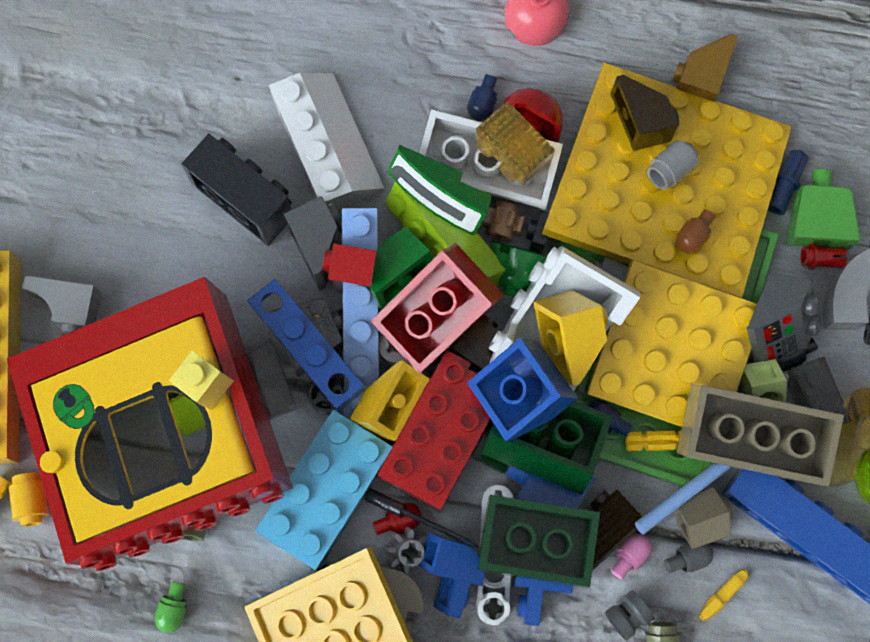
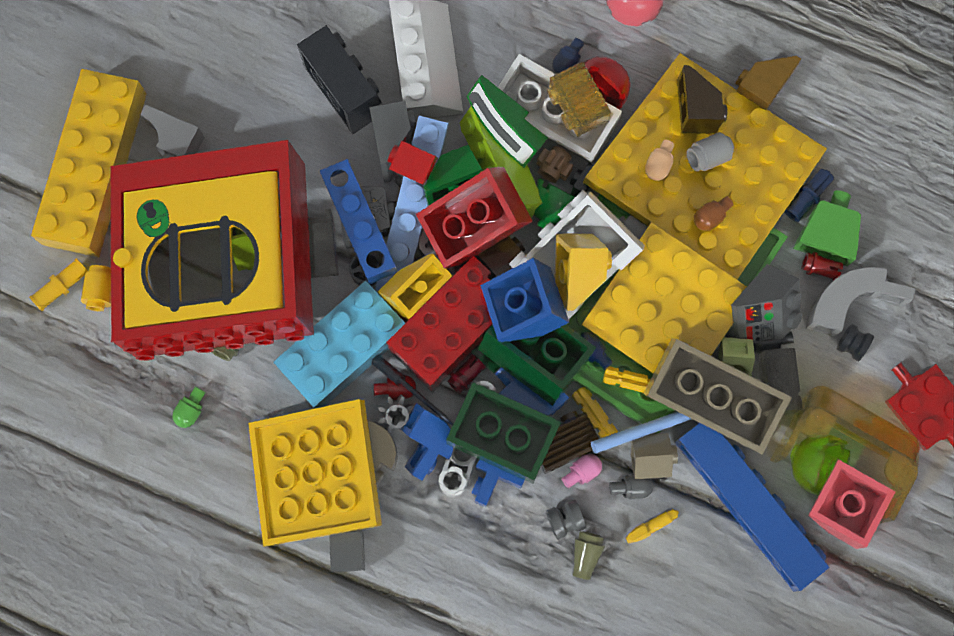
camera: 20 degrees right, 0 degrees up
(201, 380) = (260, 221): light yellow brick -> none
(472, 483) = (465, 374): none -> dark red pin
(621, 189) = (660, 161): none -> light nougat cylinder
(628, 487) = (594, 411): none -> yellow axle

